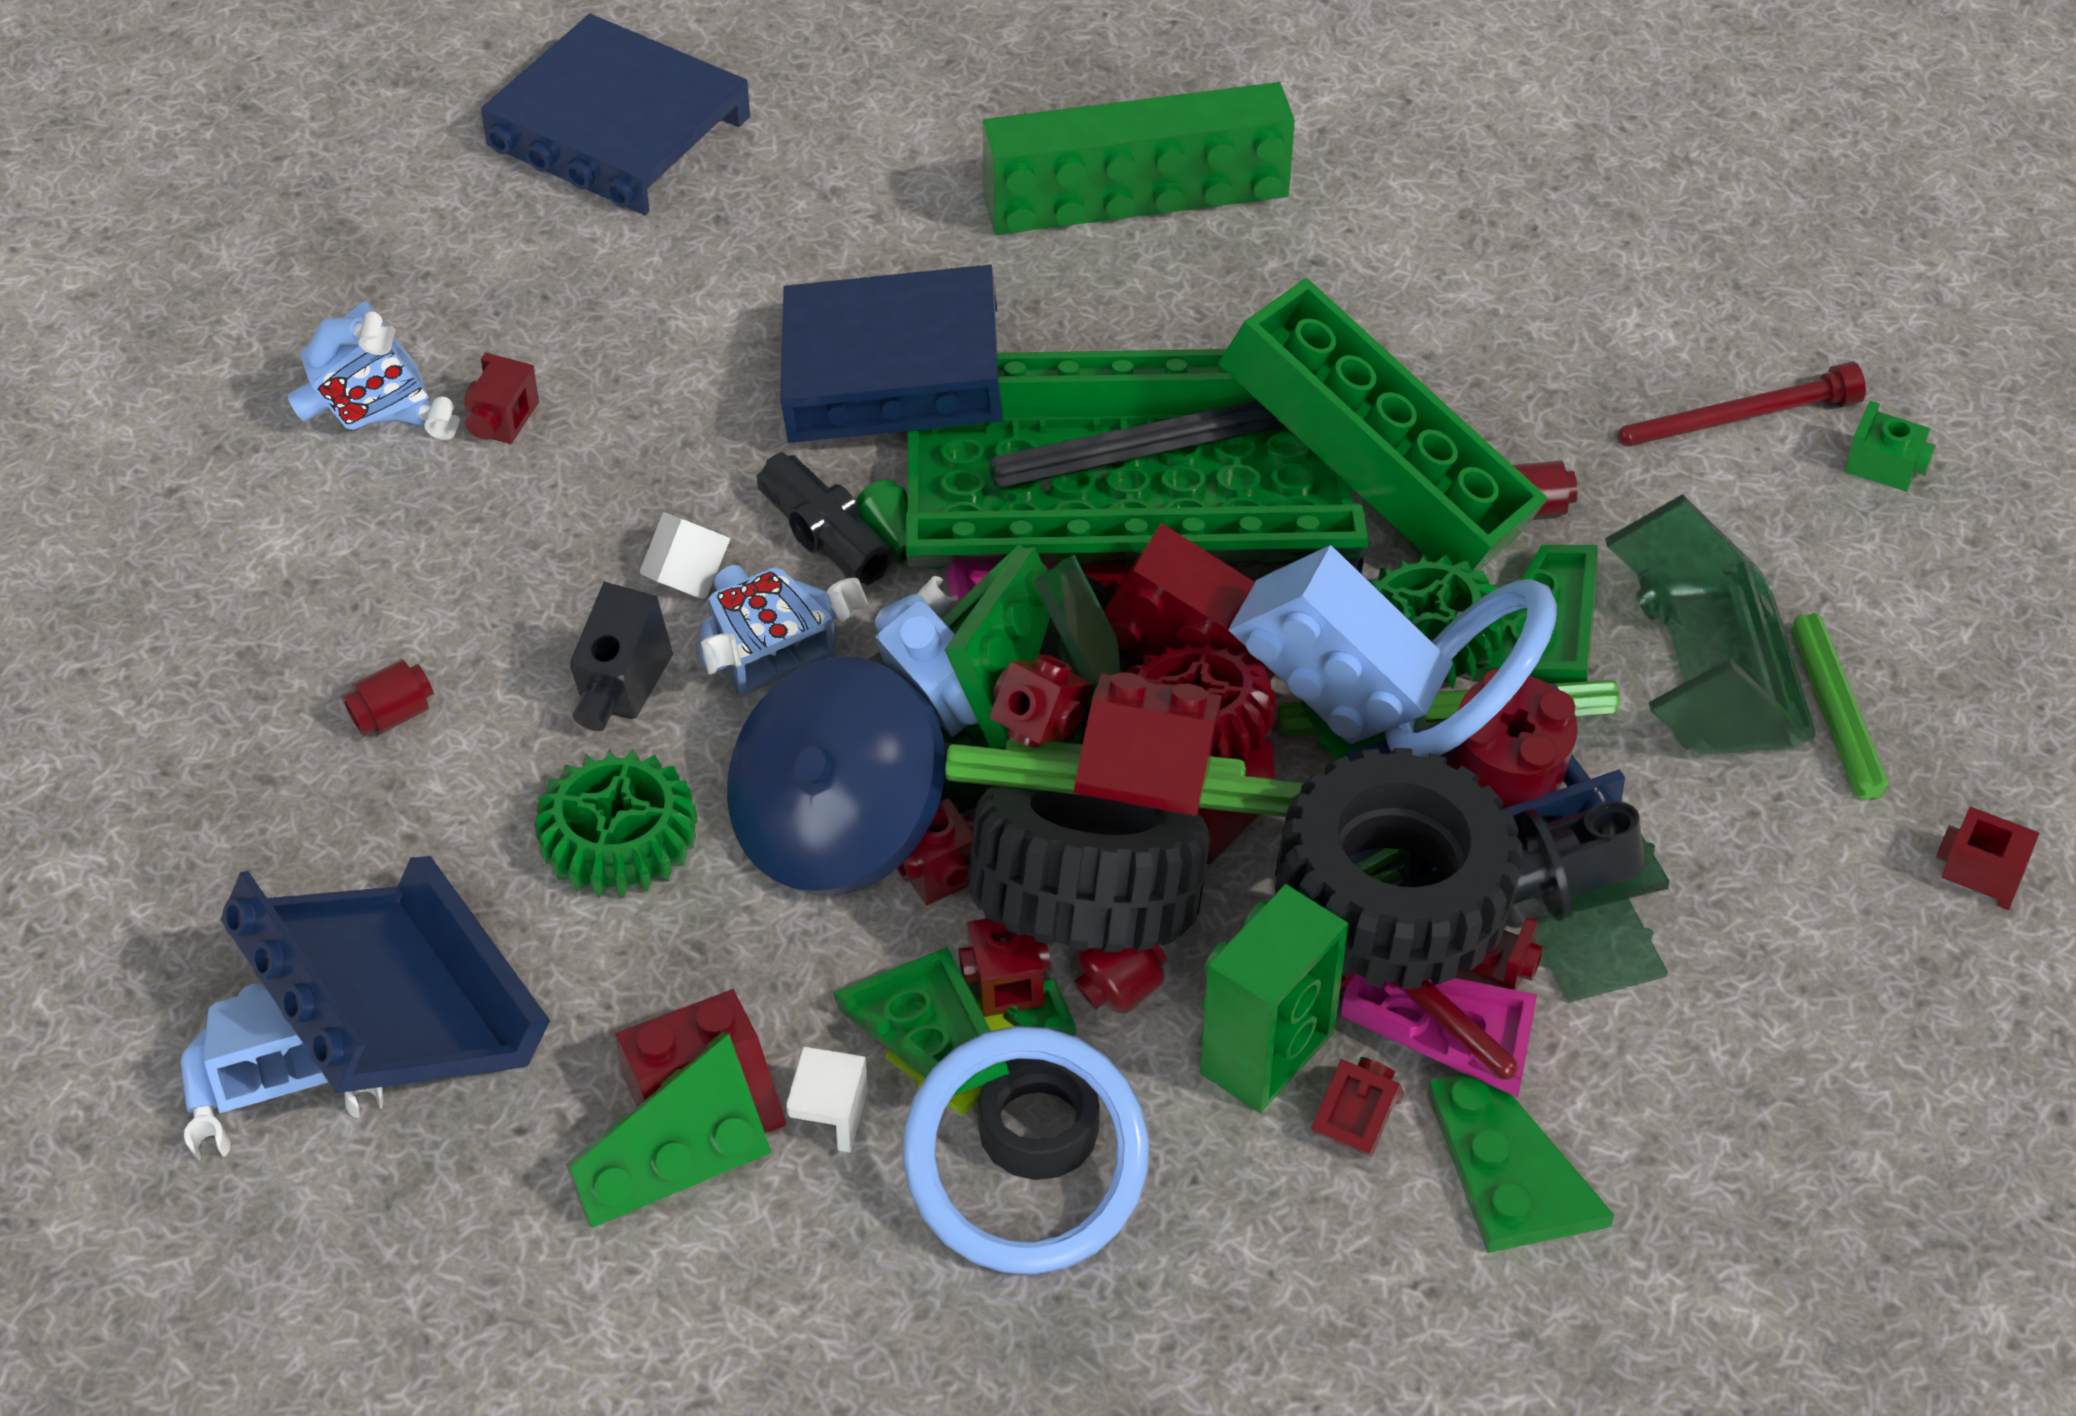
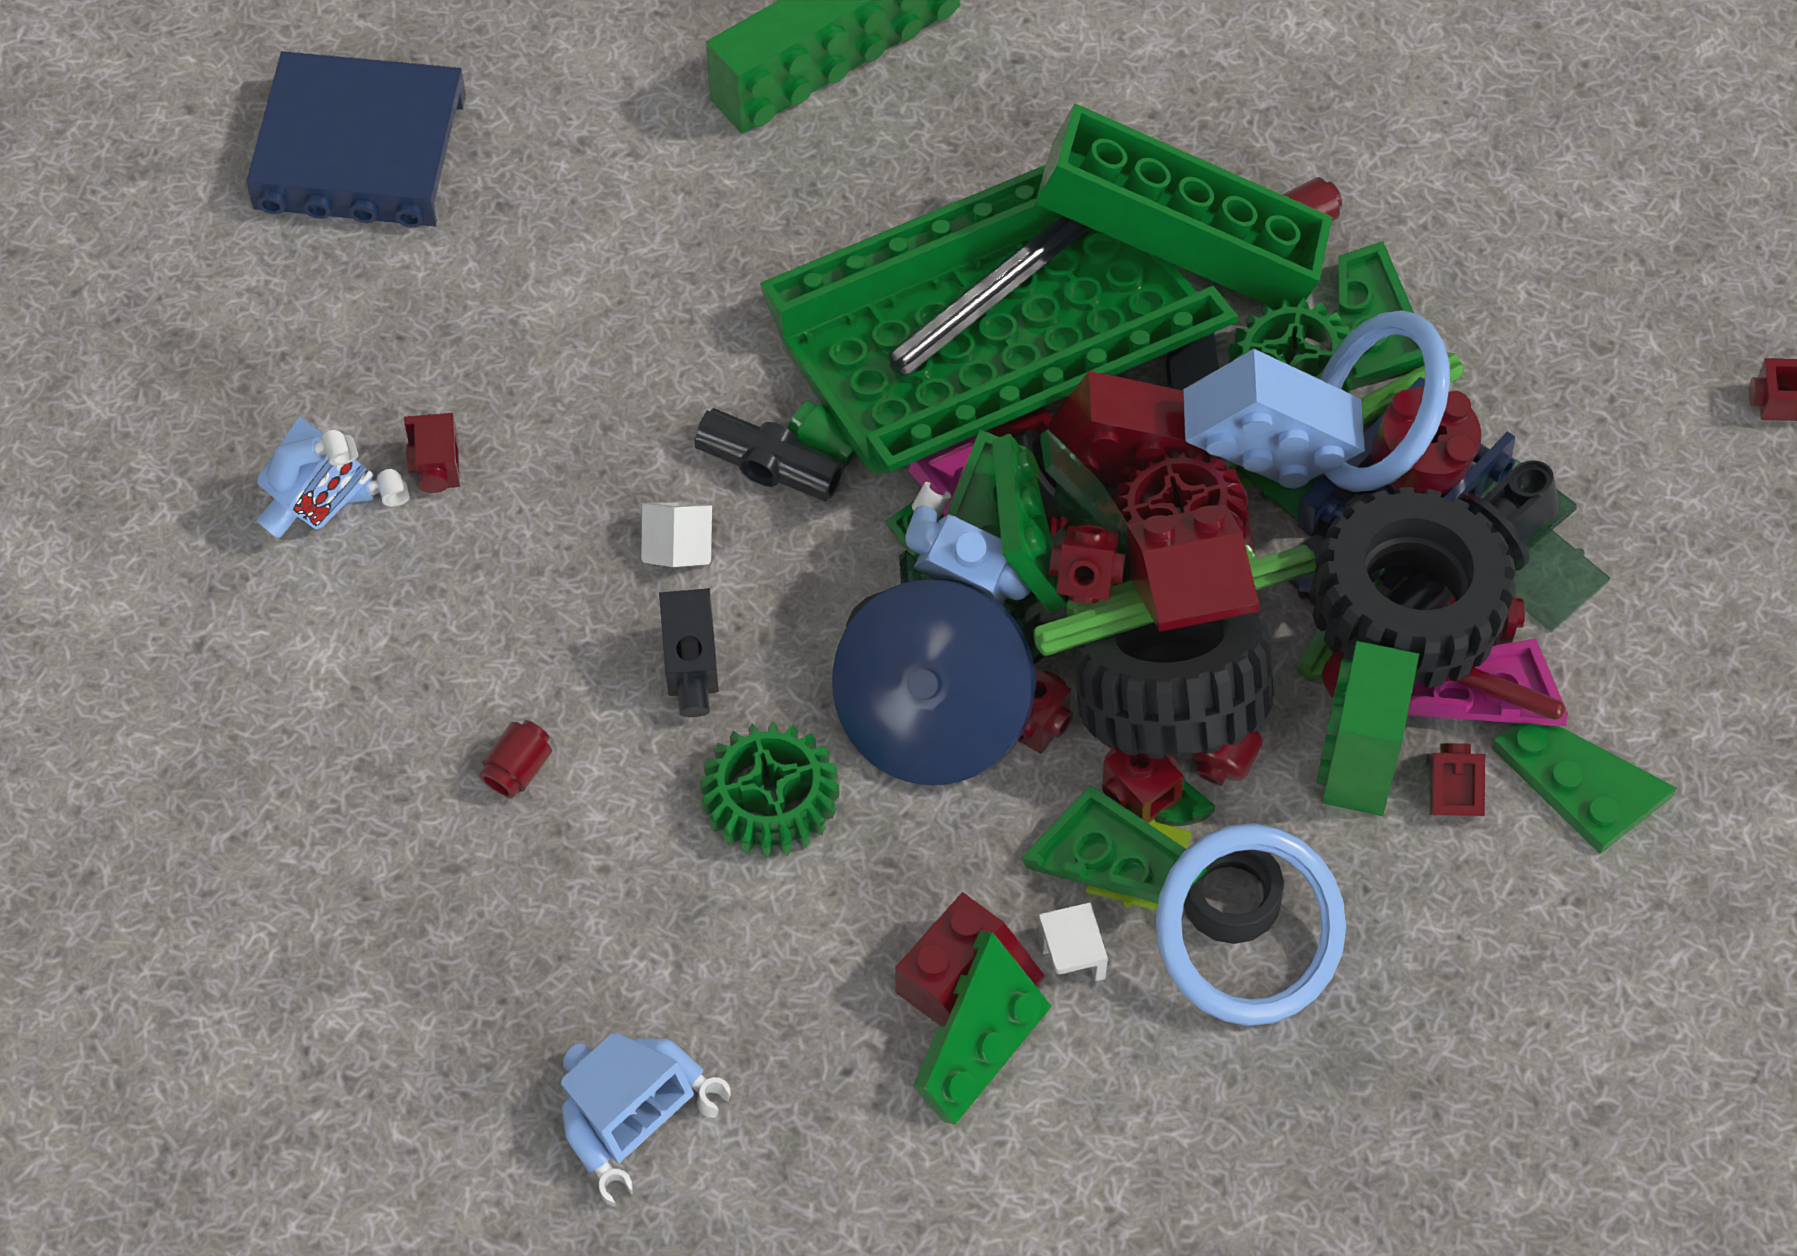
camera: 25 degrees left, 10 degrees up
(387, 980) = (690, 997): dark blue panel -> none
(771, 624) = (787, 566): torso -> none
(890, 354) = (742, 283): dark blue panel -> none
(1726, 633) = (1513, 285): clear green windscreen -> none
(1839, 707) = (1620, 306): bright green axle -> none
(1840, 385) = (1482, 24): dark red piece -> none
(1889, 449) = (1548, 68): green brick -> none

